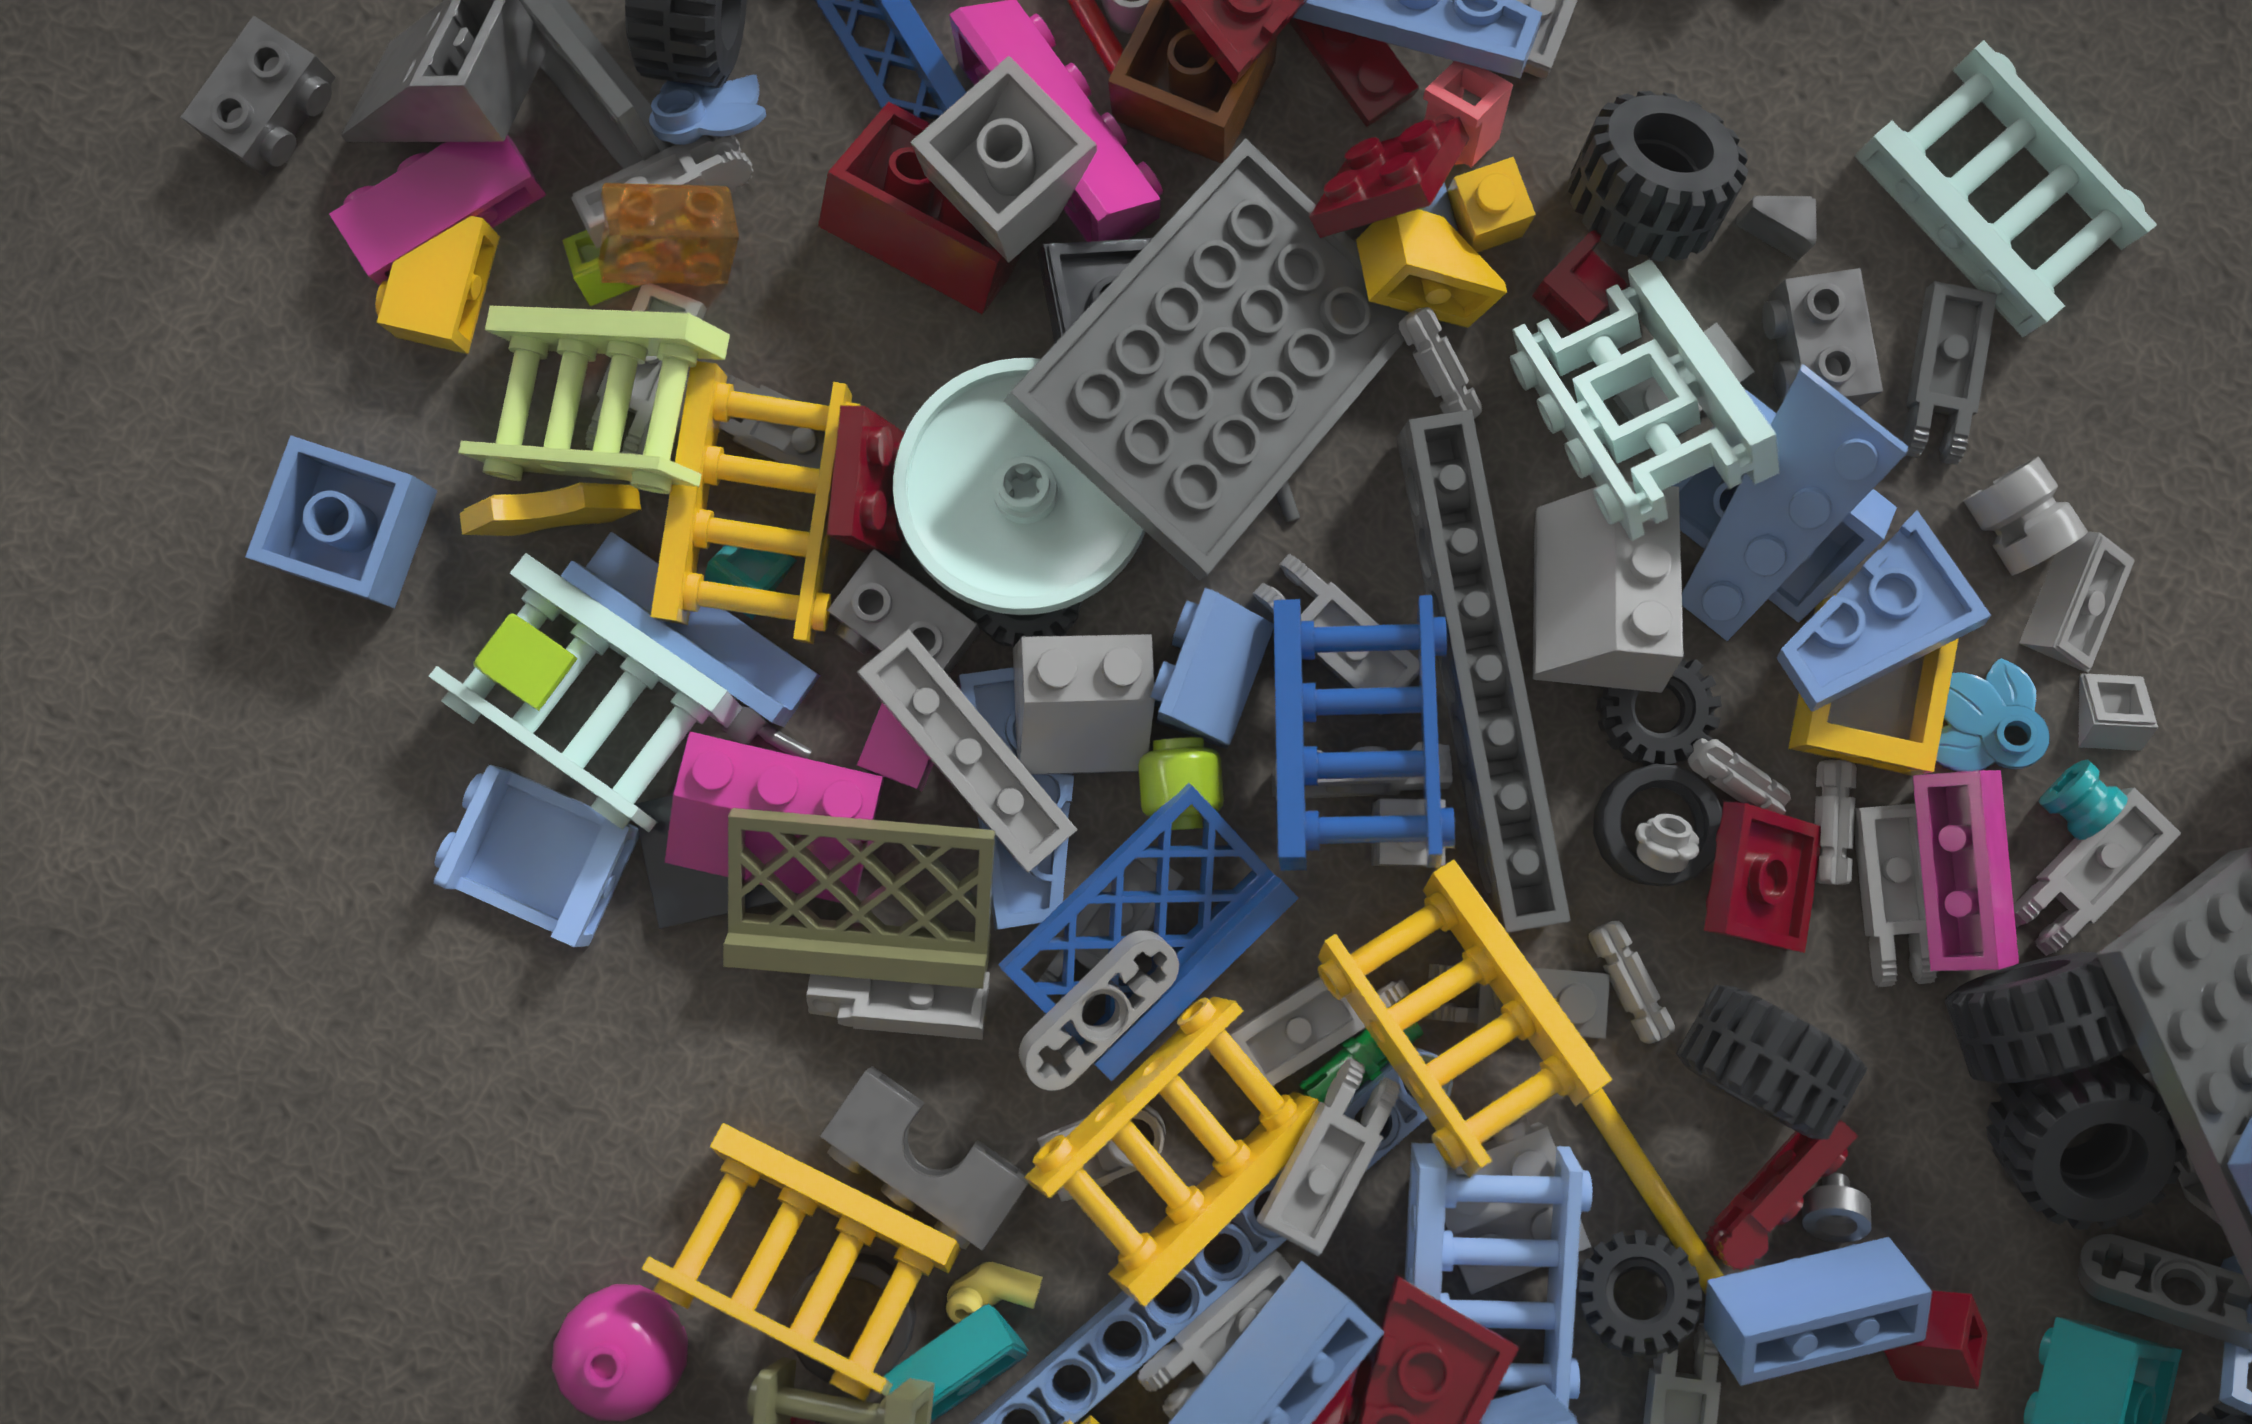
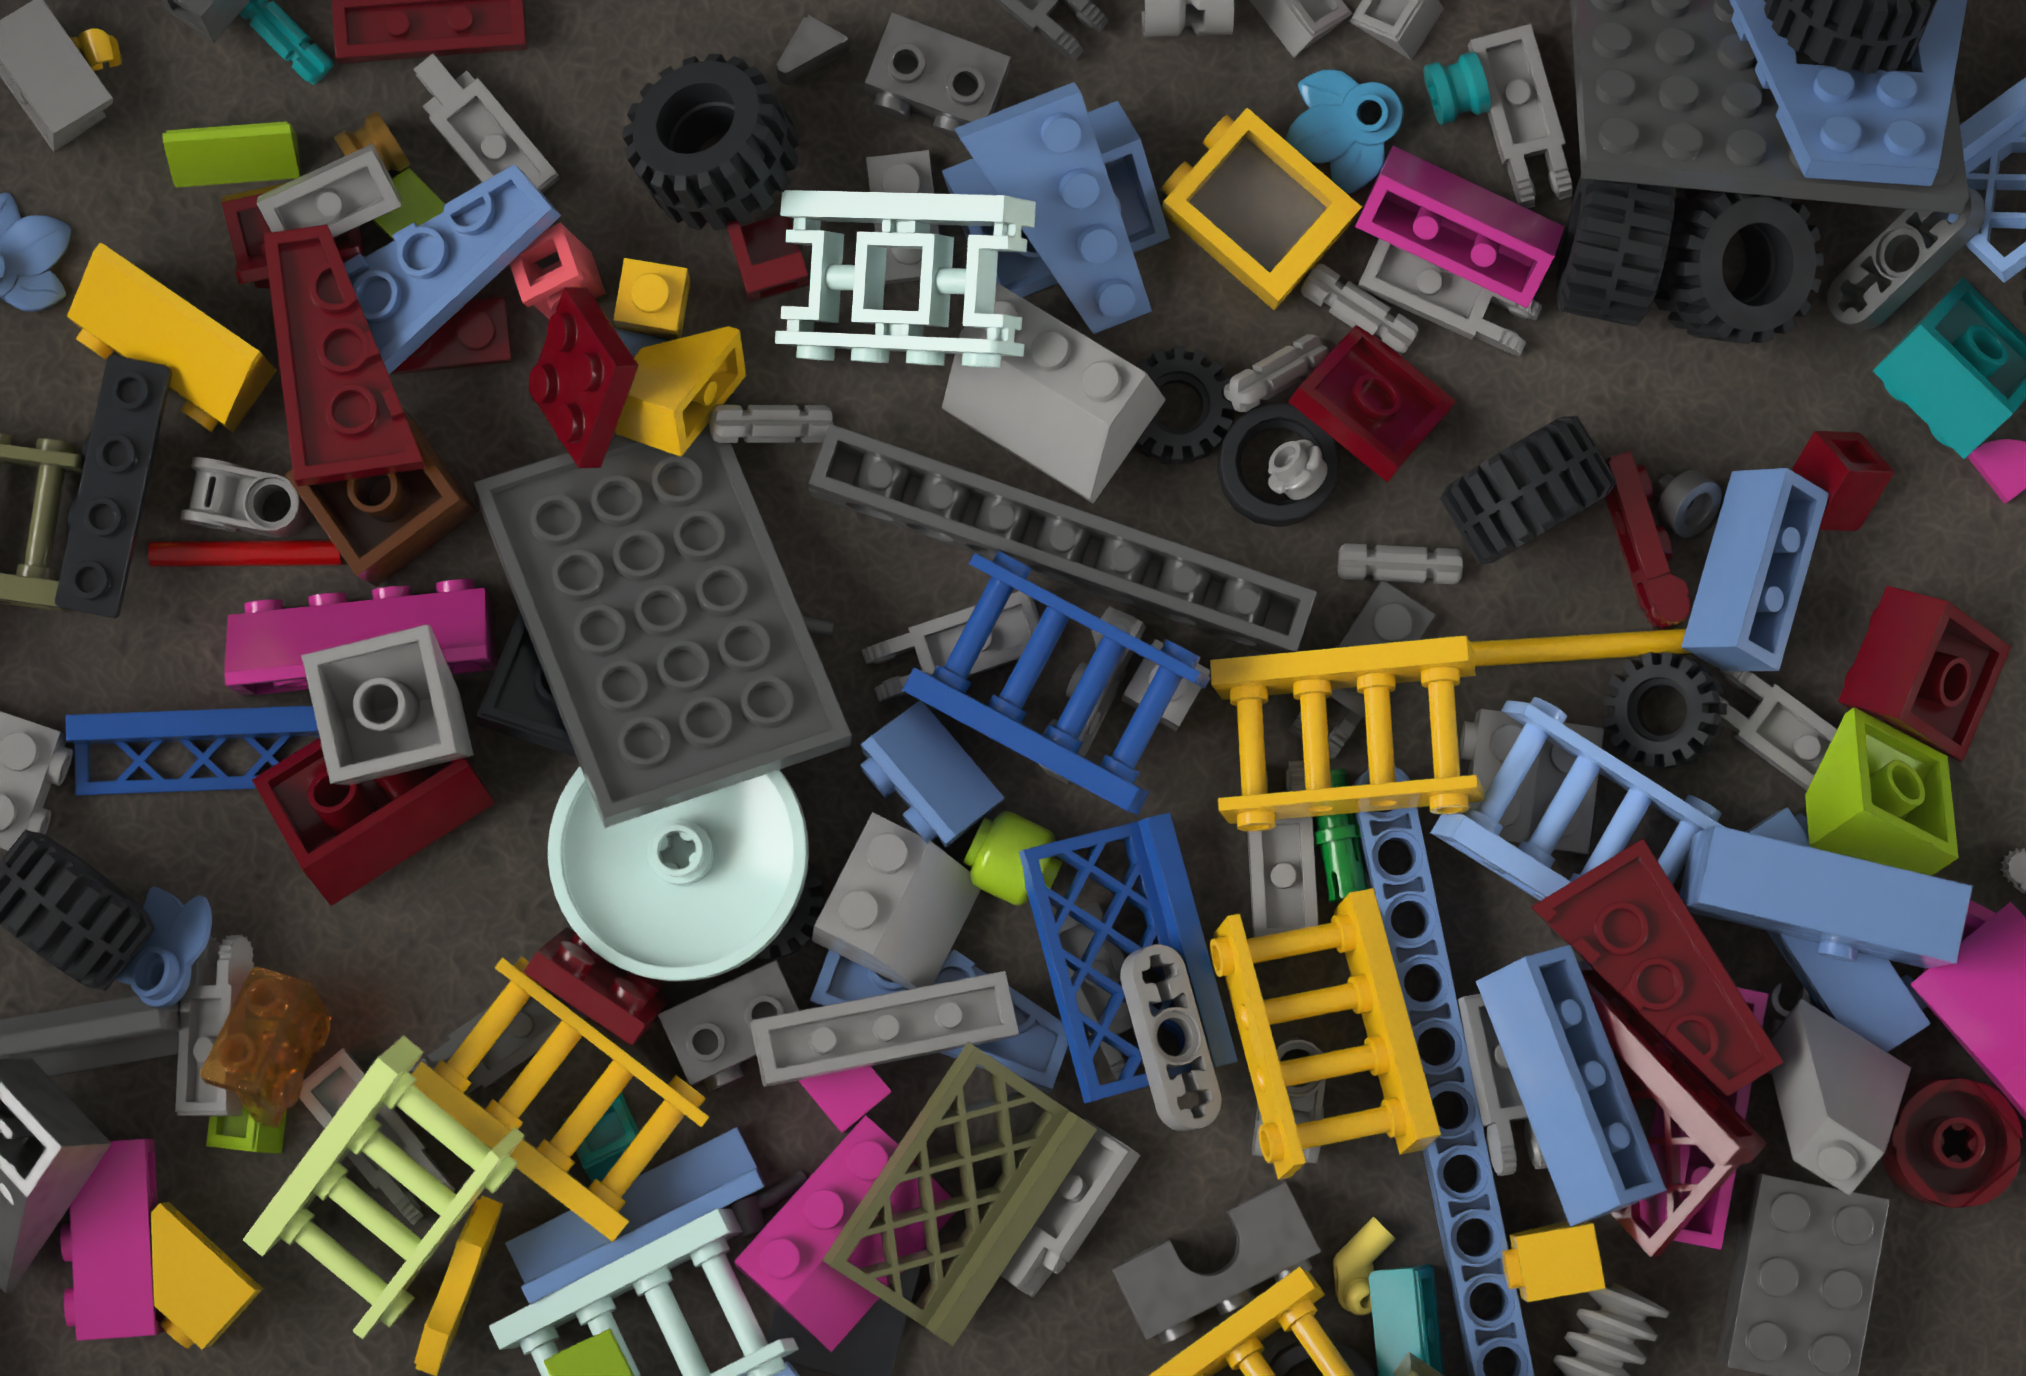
camera: 70 degrees left, 0 degrees up
(1328, 1162) = (1406, 912): light grey hinge -> none
(1886, 616) = (1208, 175): medium blue wing -> none

